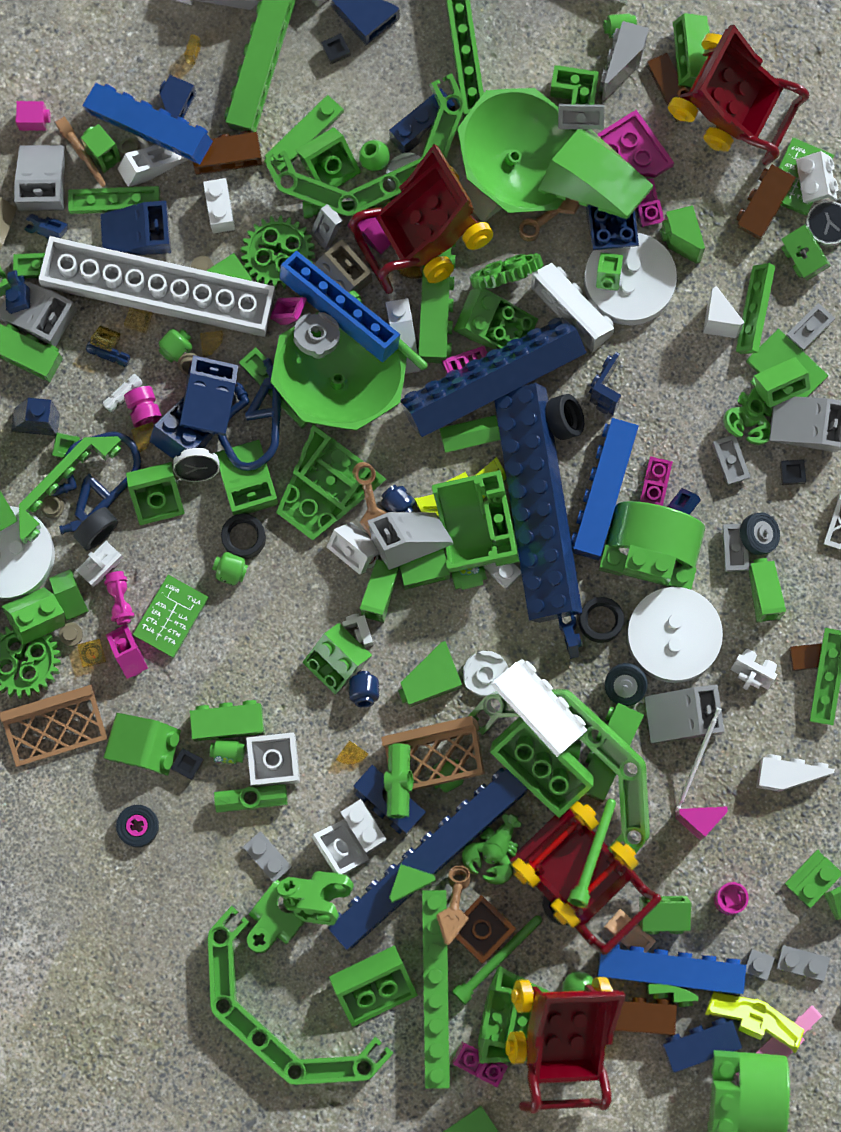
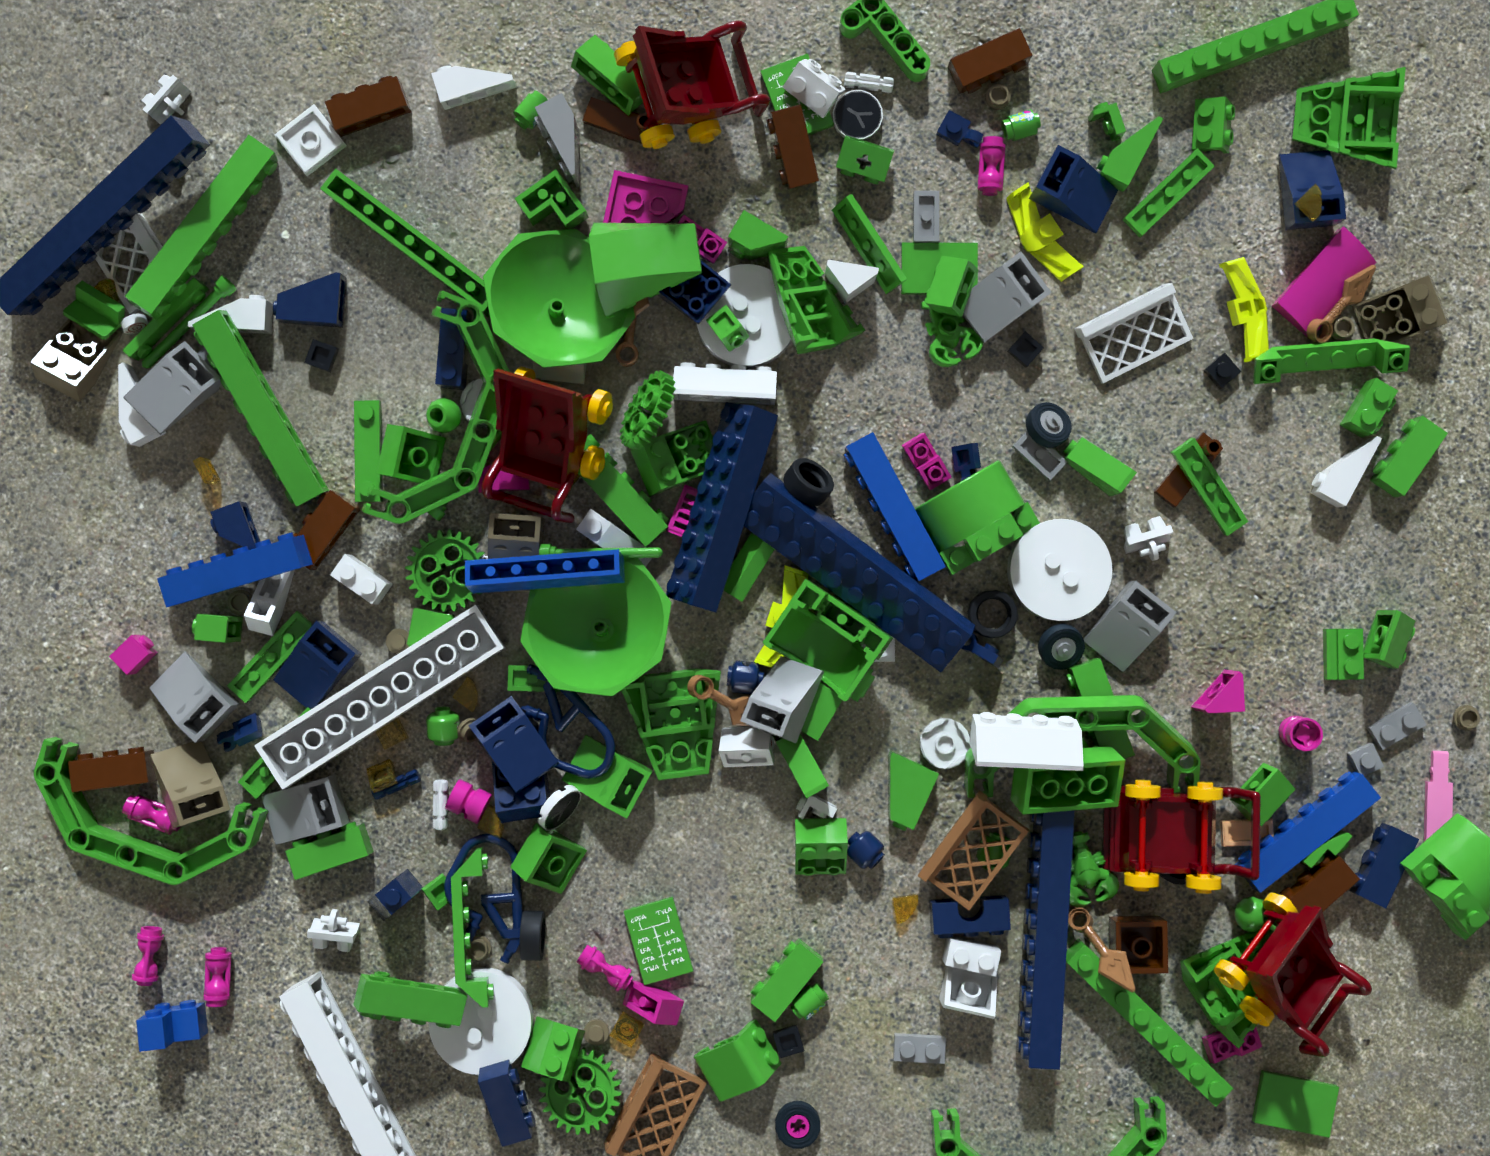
camera: 50 degrees left, 10 degrees up
(19, 295) = (278, 812): dark blue plate -> none
(68, 594) = (561, 1003): bright green slope -> none
(69, 134) = (178, 638): medium nougat piece -> none
(99, 563) = (563, 958): white hips -> none
(230, 568) = (667, 859): bright green head -> none
(235, 799) = (853, 1032): bright green piece -> none
(239, 519) = (640, 839): black tyre -> none
(272, 921) = (975, 1092): bright green piece -> none
(273, 760) = (853, 975): white slope -> none
(287, 310) = (504, 611): dark pink slope -> none
(312, 897) = (990, 1051): bright green piece -> none
(313, 323) = (538, 603): light grey plate -> none
(326, 226) = (465, 513): light grey plate -> none
(373, 986) = (1096, 1066): bright green slope -> none
(398, 781) = (967, 899): bright green piece -> none
(409, 881) = (1059, 973): bright green slope -> none
(465, 991) = (1168, 1000): bright green piece -> none
(579, 896) = (1205, 859): bright green piece -> none
(581, 116) = (580, 221): light grey plate -> none
(601, 395) = (826, 436): dark blue bracket -> none
(677, 307) = (808, 303): none -> bright green wedge
(697, 761) = (1175, 652): white piece -> none
(731, 460) = (968, 387): light grey plate -> none
(756, 1018) = (1405, 804): neon yellow plate -> none
(782, 775) = (1249, 597): white slope -> none

